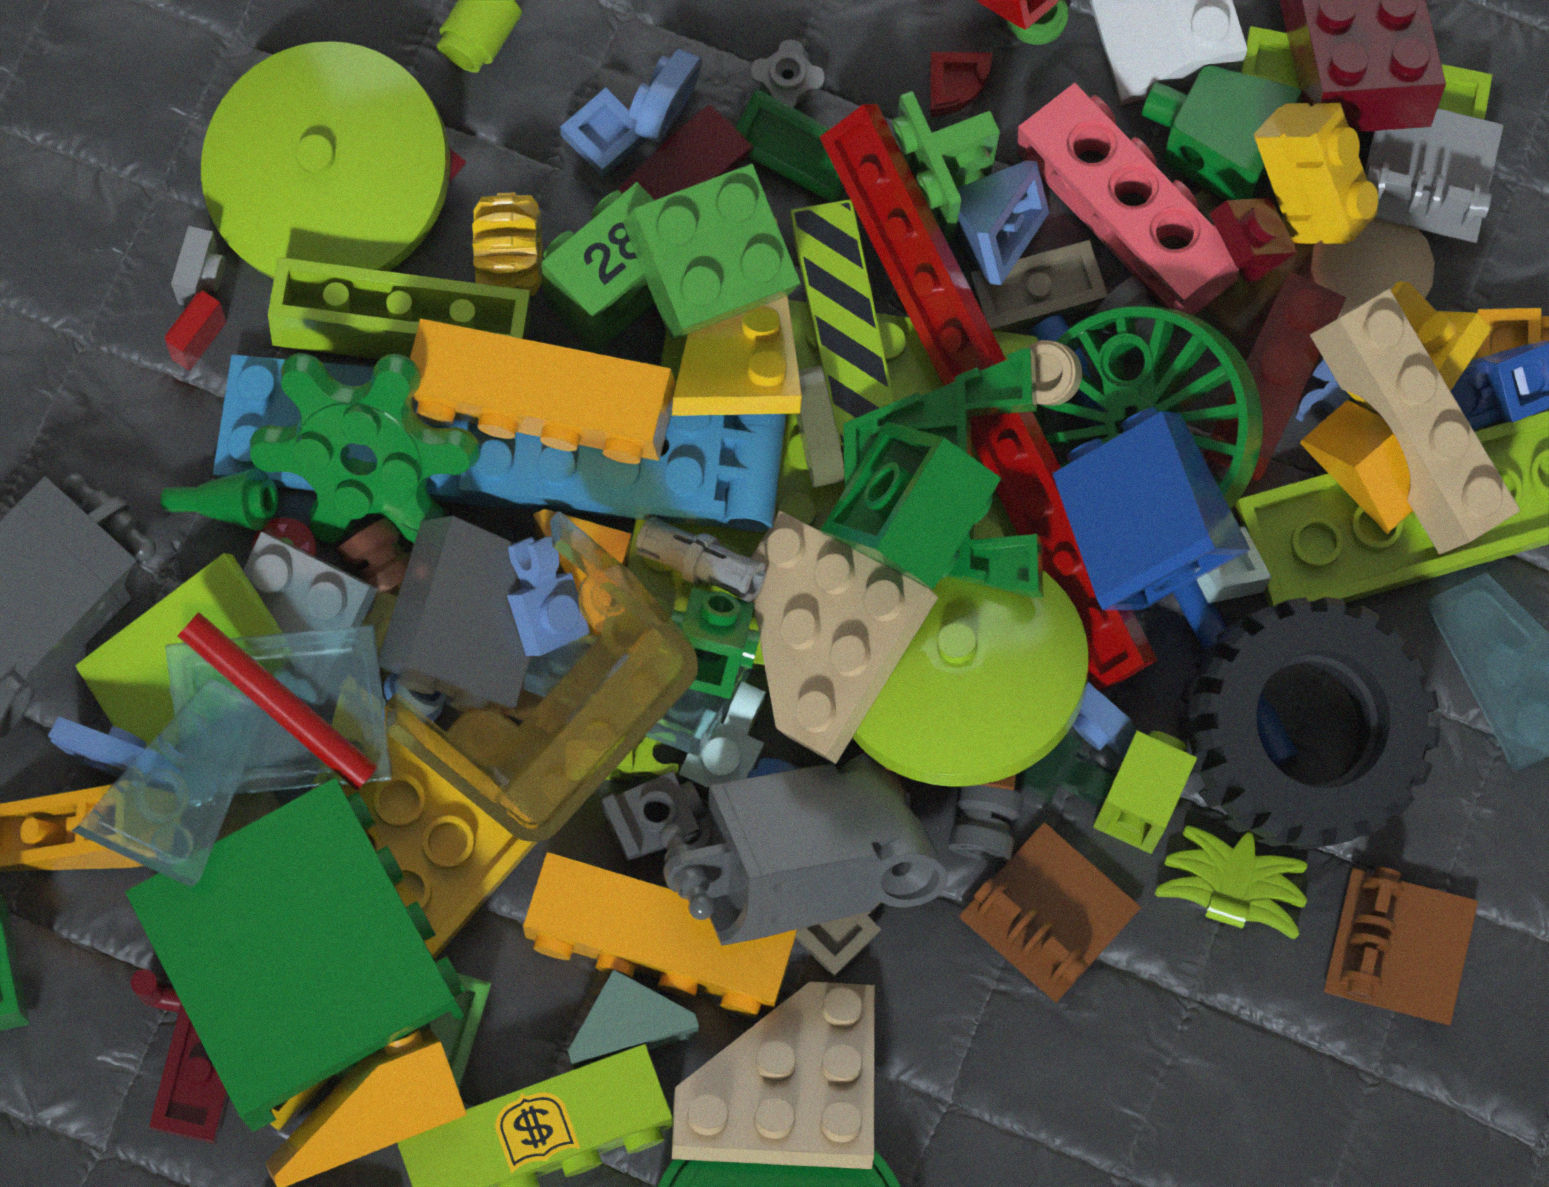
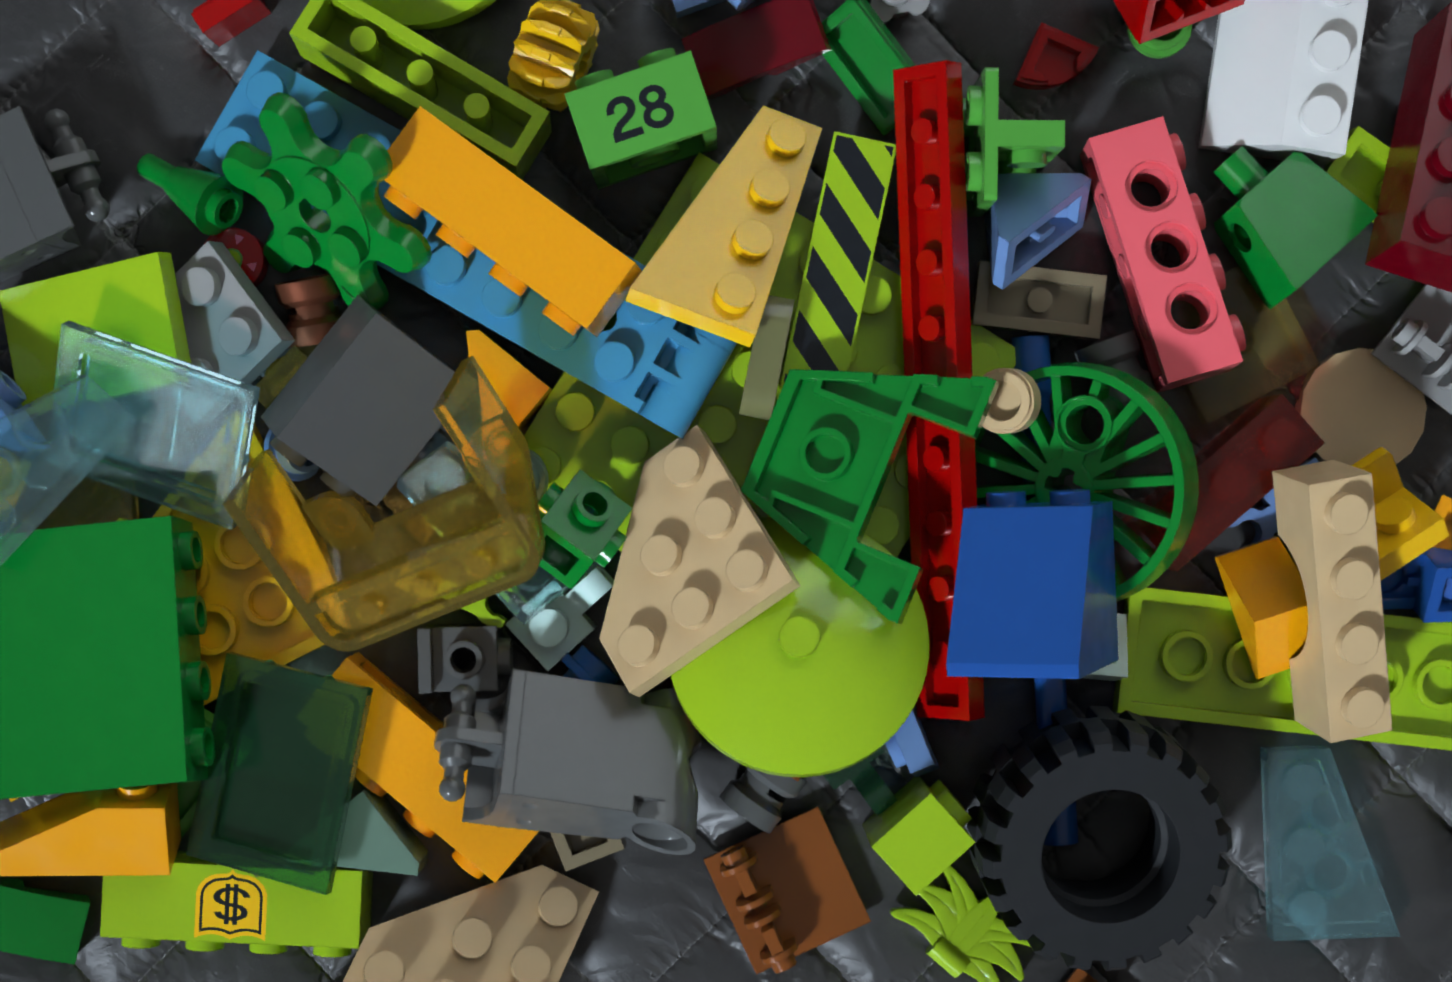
camera: 30 degrees right, 15 degrees up
(277, 701) = (144, 420): red piece -> none
(532, 978) = (280, 772): none -> clear green piece
(548, 603) = (426, 439): medium blue plate -> none
(701, 559) = (602, 442): light grey pin -> none
(711, 252) = (728, 158): bright green brick -> none
(912, 503) = (812, 488): green slope -> none
(1253, 236) = (1264, 344): dark red bracket -> none
(1317, 173) = (1355, 309): yellow brick -> none

